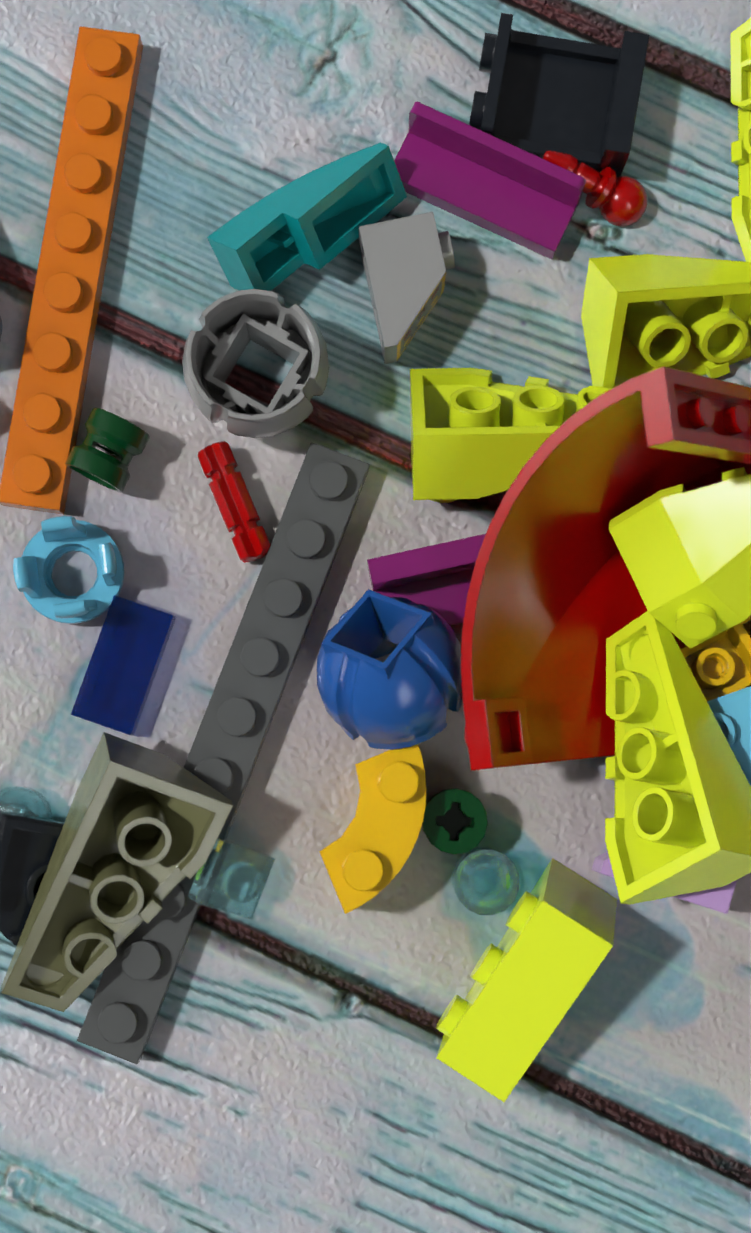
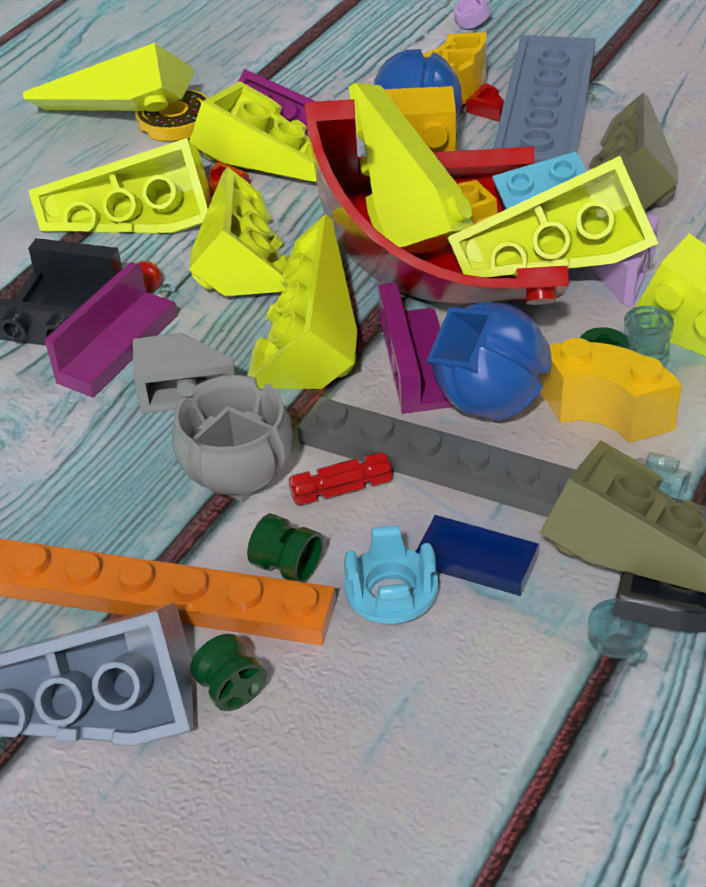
camera: 85 degrees left, 40 degrees down
(308, 219) = (119, 422): teal slope -> none

